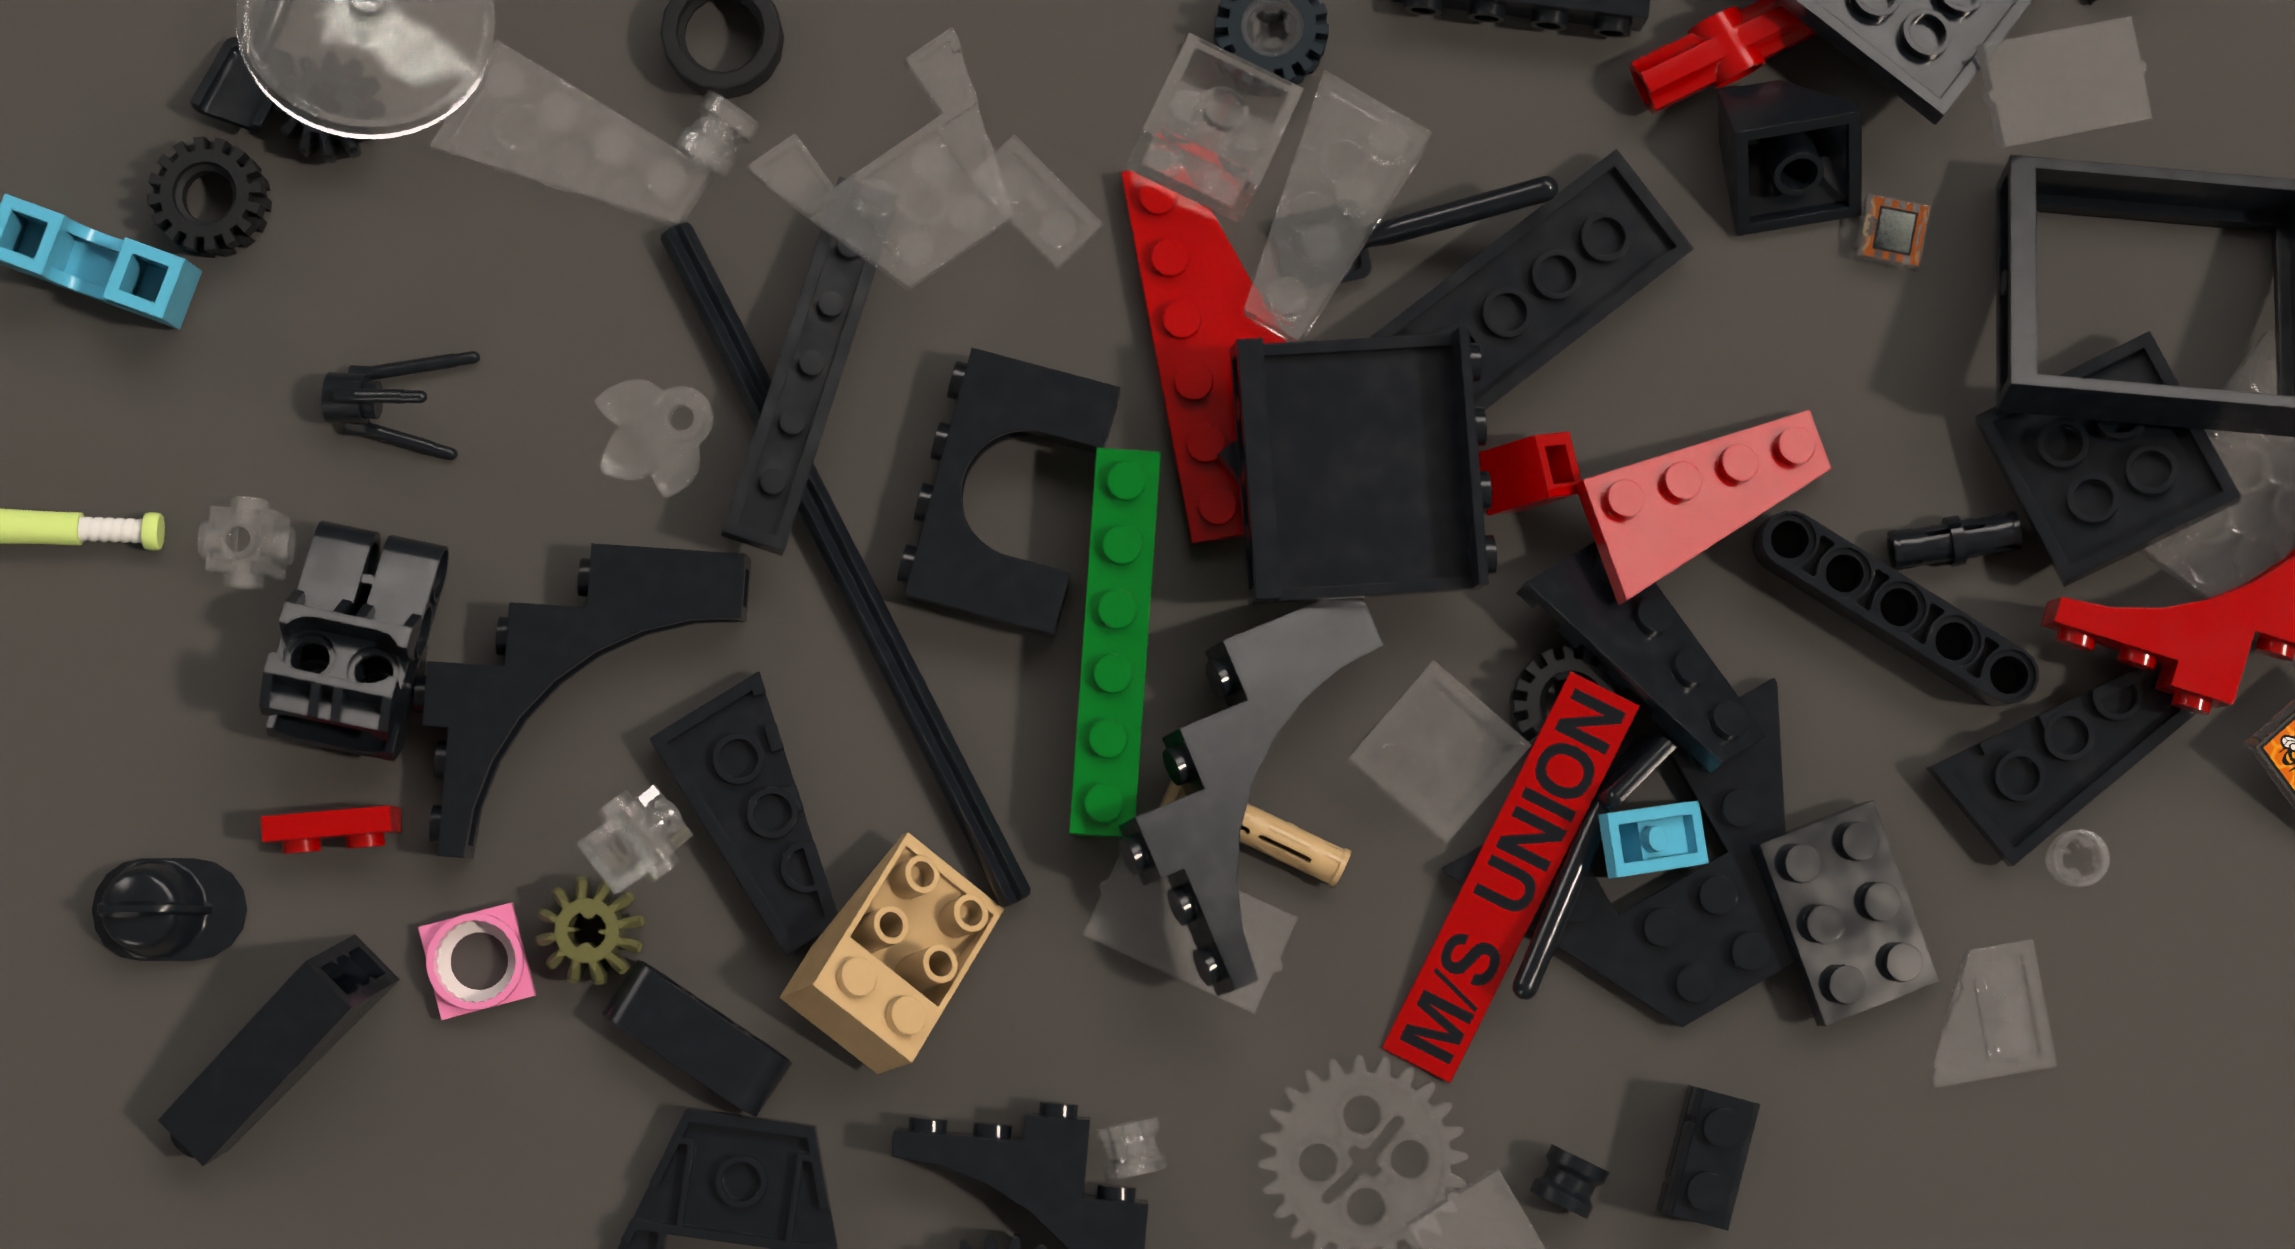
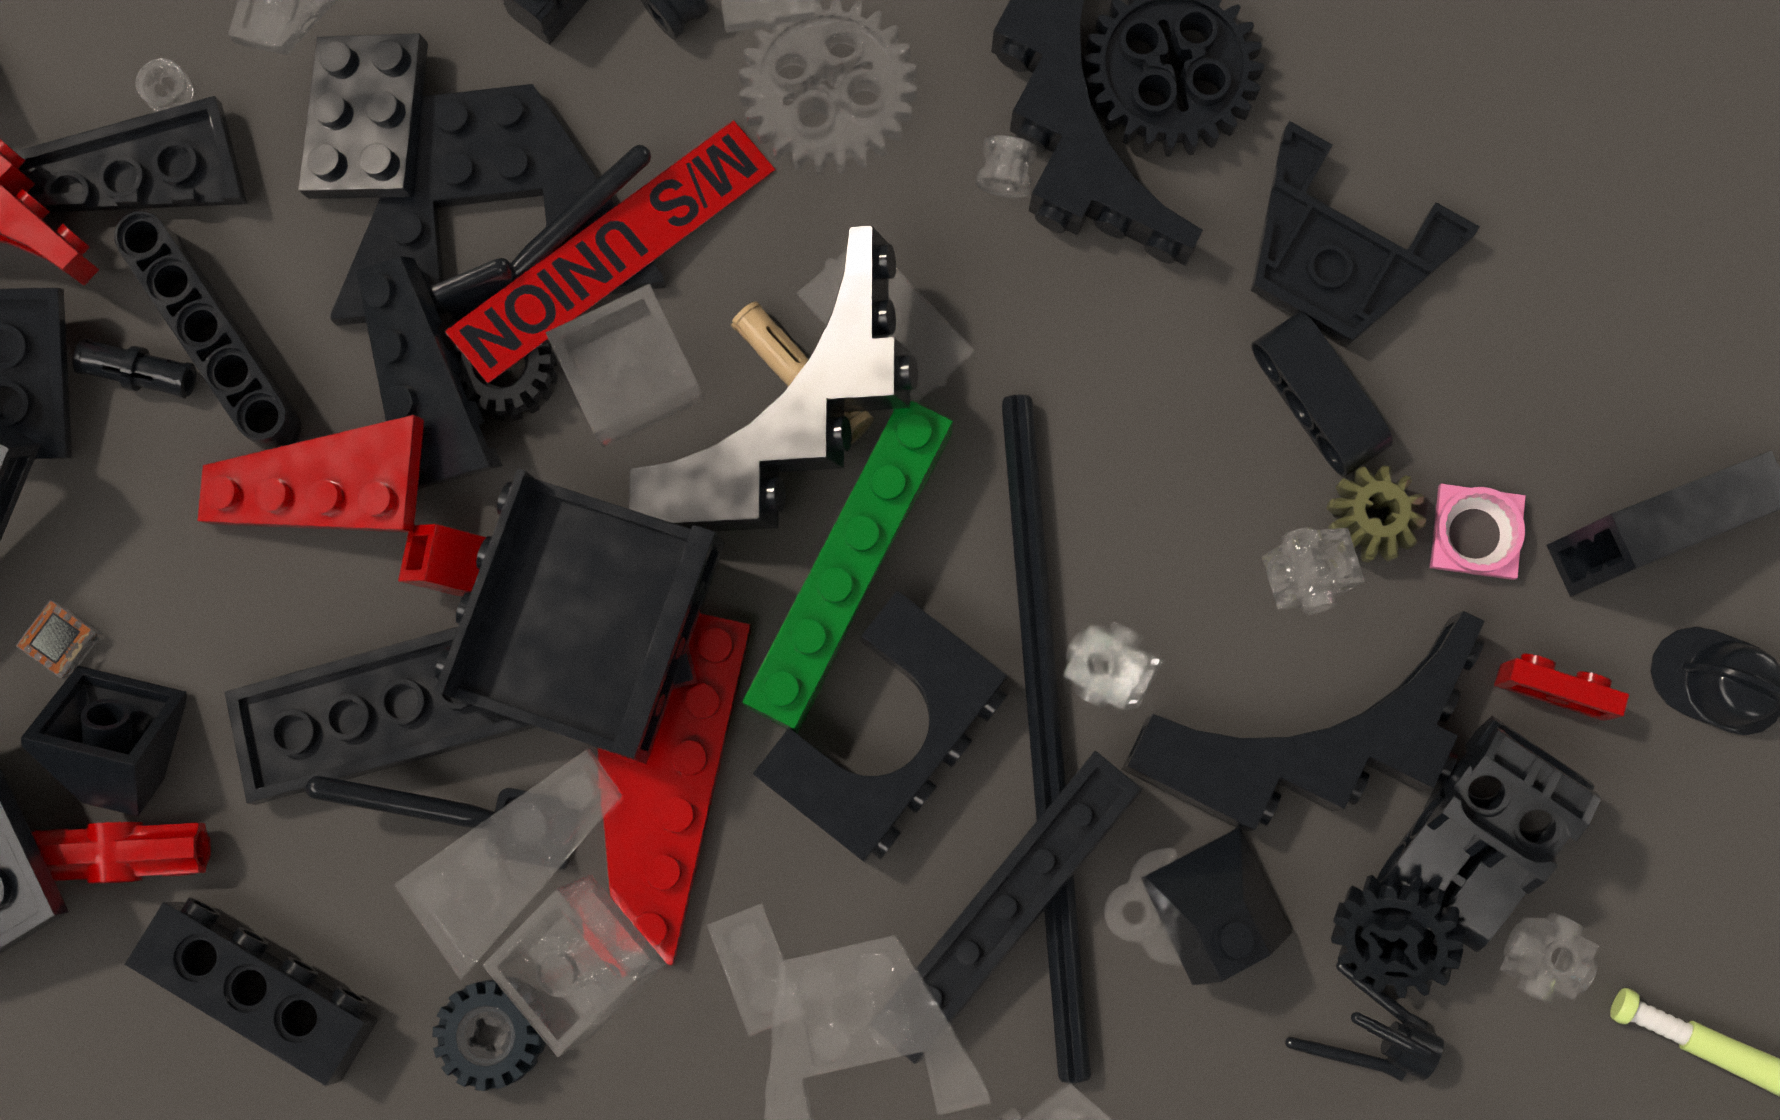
camera: 150 degrees left, 5 degrees down
(408, 500) = (1398, 935): none -> black gear
(597, 453) = (1217, 909): none -> black slope
(746, 798) = (1205, 573): black wing -> none
(802, 651) = (1111, 666): none -> clear brick
(893, 956) = (1136, 388): tan slope -> none
(1653, 839) = (488, 229): medium azure slope -> none

